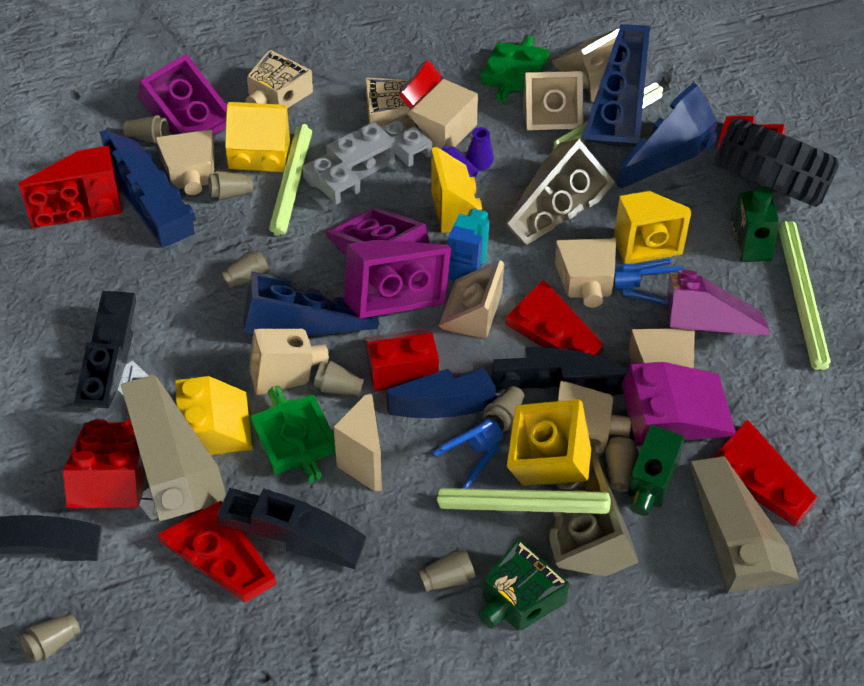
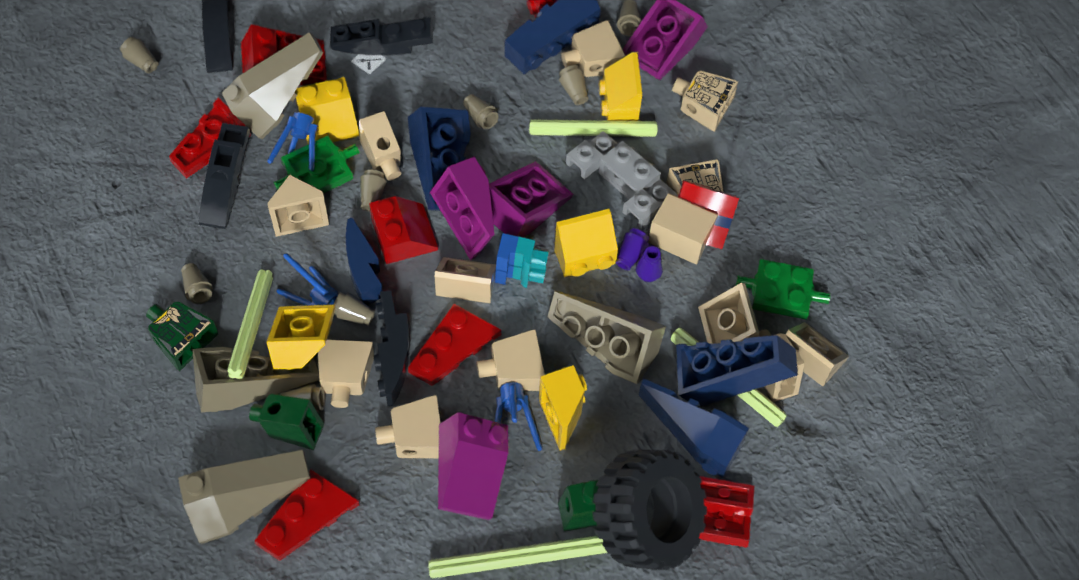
camera: 80 degrees right, 10 degrees up
(243, 432) = (300, 127): none -> blue plant
(676, 400) = (352, 433): magenta slope -> none

